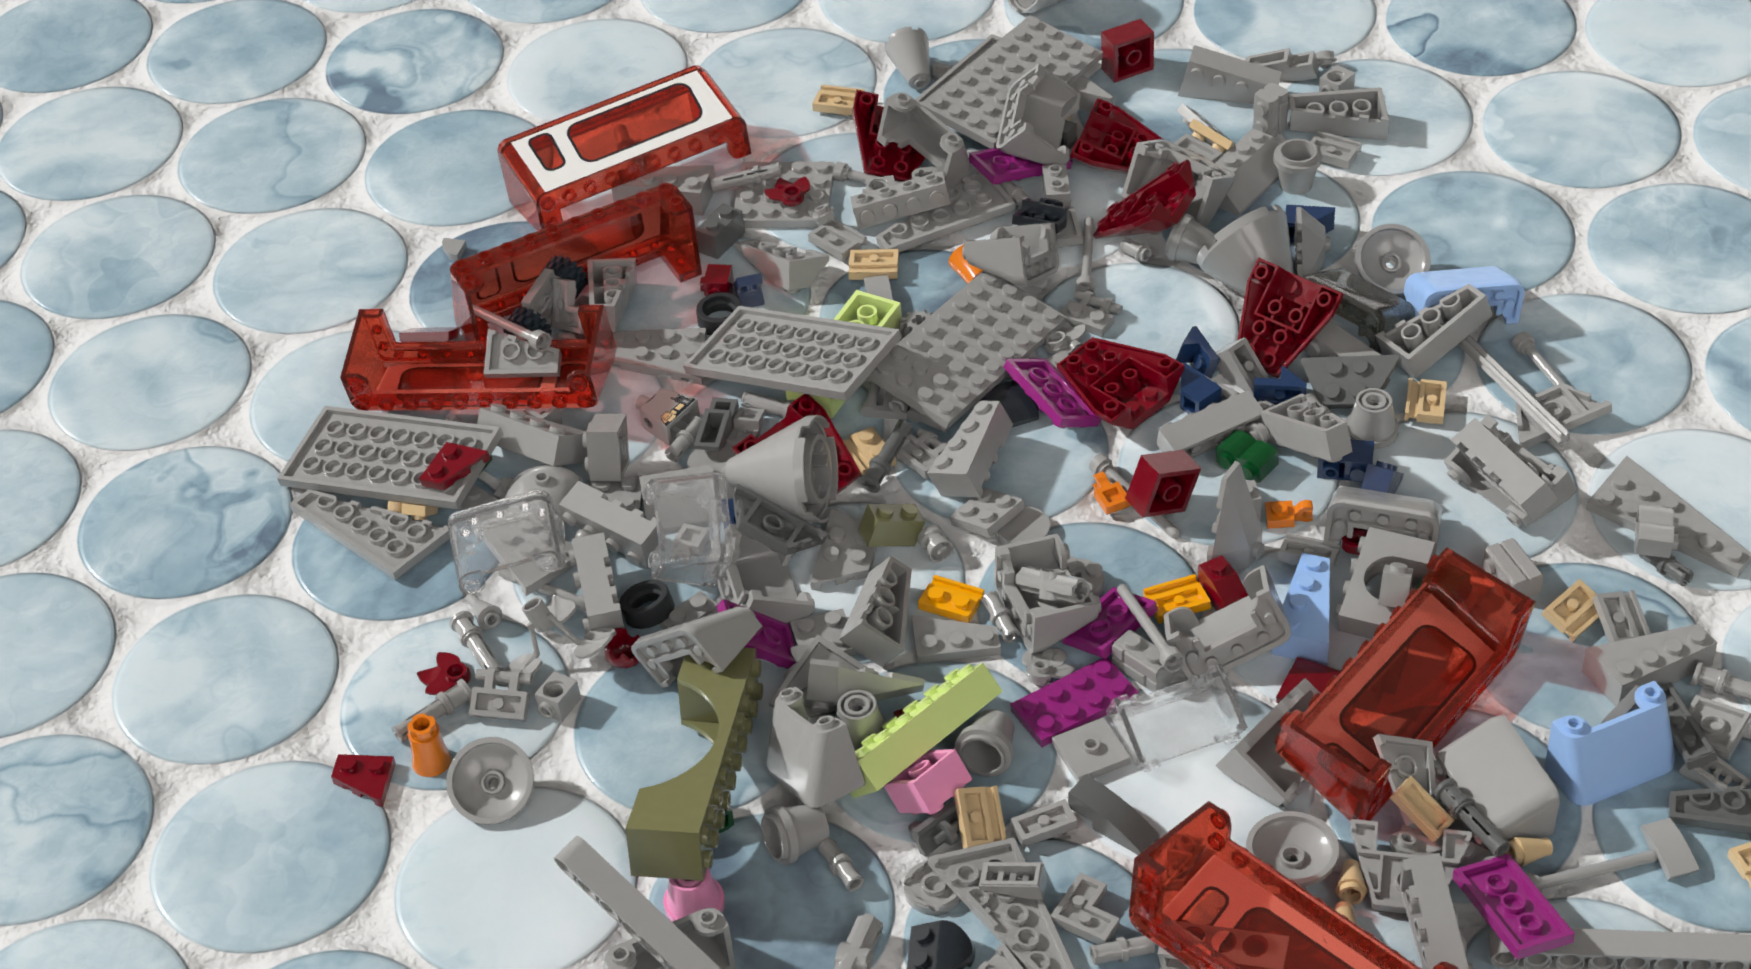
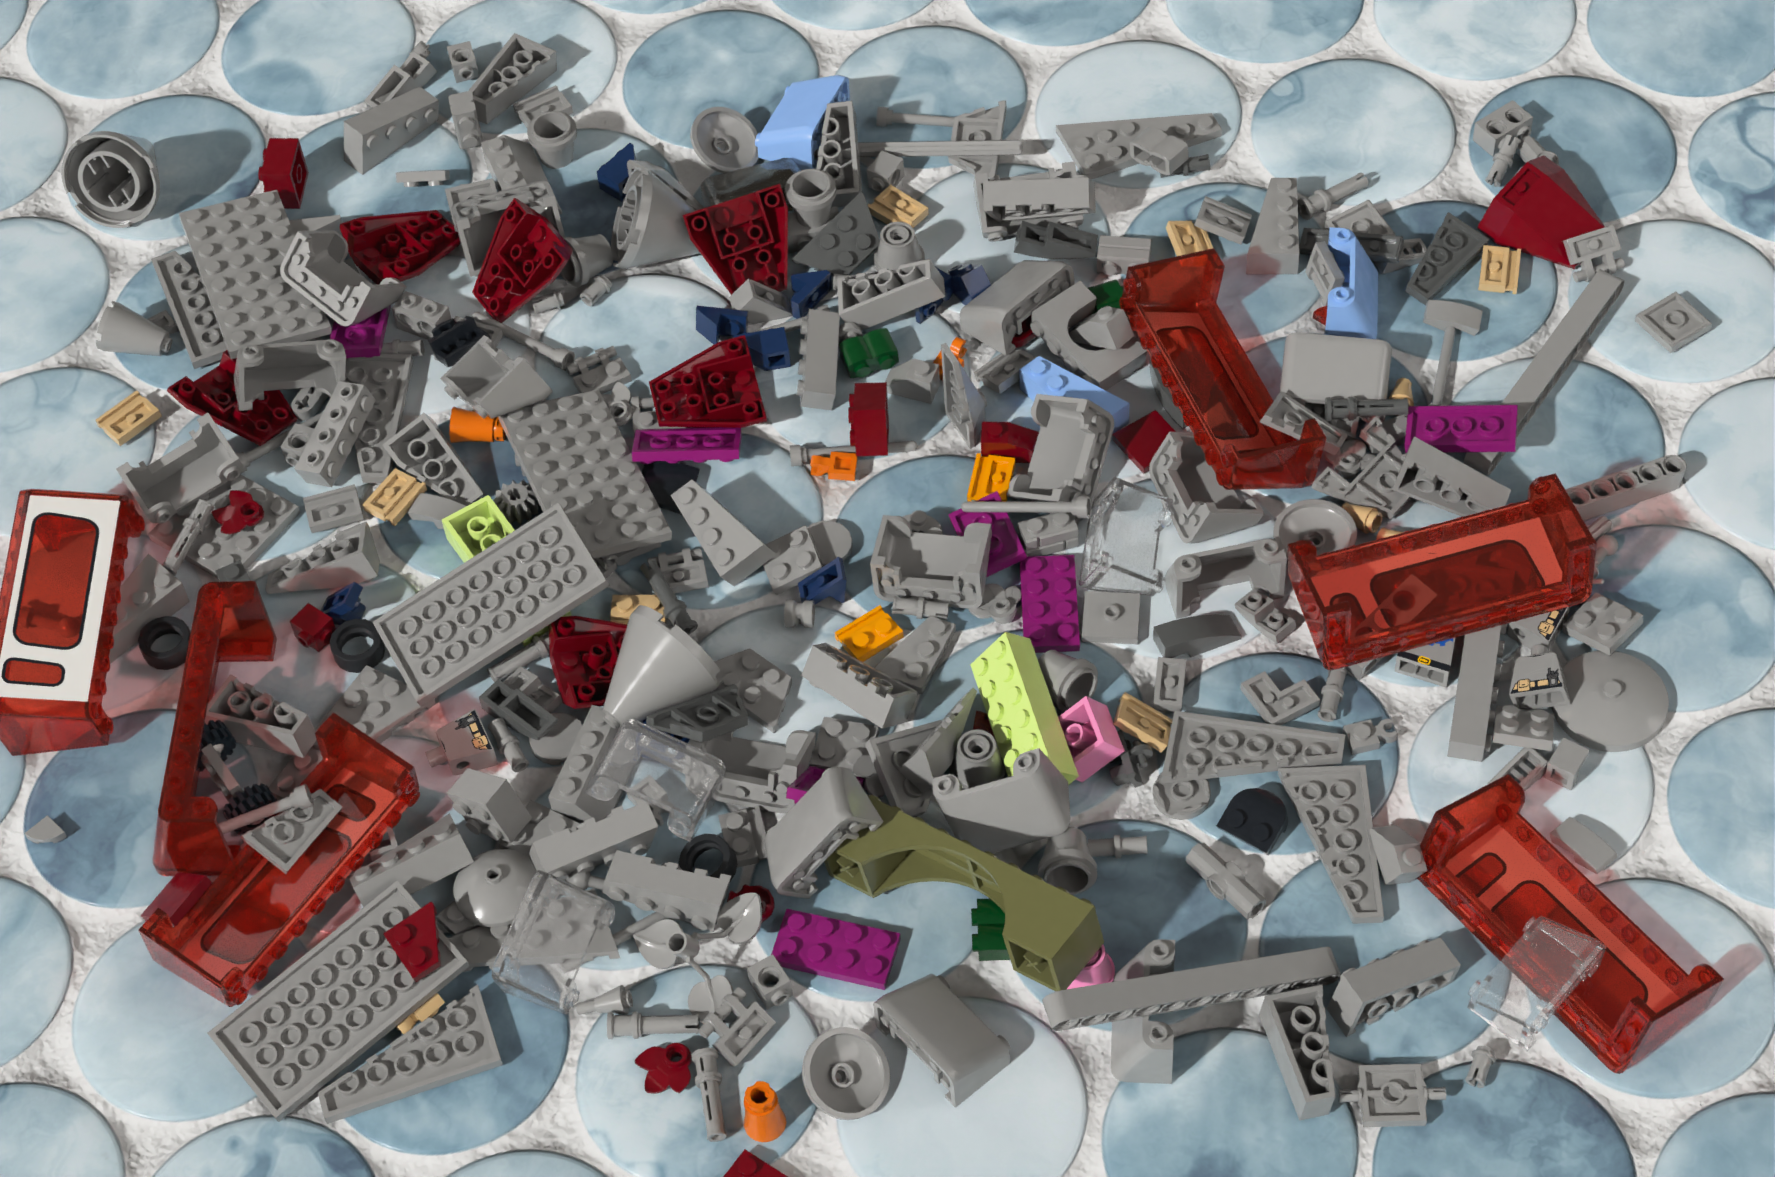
camera: 60 degrees left, 10 degrees up
(558, 809) = (943, 1035): none -> light grey windscreen
(564, 308) = (251, 766): light grey plate -> none
(619, 726) = (836, 949): none -> magenta plate
(795, 146) = (183, 473): none -> light grey windscreen
(823, 214) = (296, 501): light grey plate -> none
(891, 525) = (761, 632): olive brick -> none
(923, 263) = (431, 458): none -> light grey wedge
(978, 545) = (825, 582): none -> dark blue slope
(1025, 870) = (1229, 709): light grey slope -> none
(1052, 584) = (939, 546): light grey piece -> none
(1163, 778) = (1257, 561): none -> light grey windscreen
(1171, 269) = (596, 290): none -> light grey pin
(1210, 136) = (466, 175): tan plate -> none
(1361, 326) = (811, 196): none -> light grey piece
(1422, 808) = (1340, 433): tan tile -> none
(1459, 372) = (885, 171): none -> light grey brick
(1483, 513) = (1054, 241): none -> dark grey slope

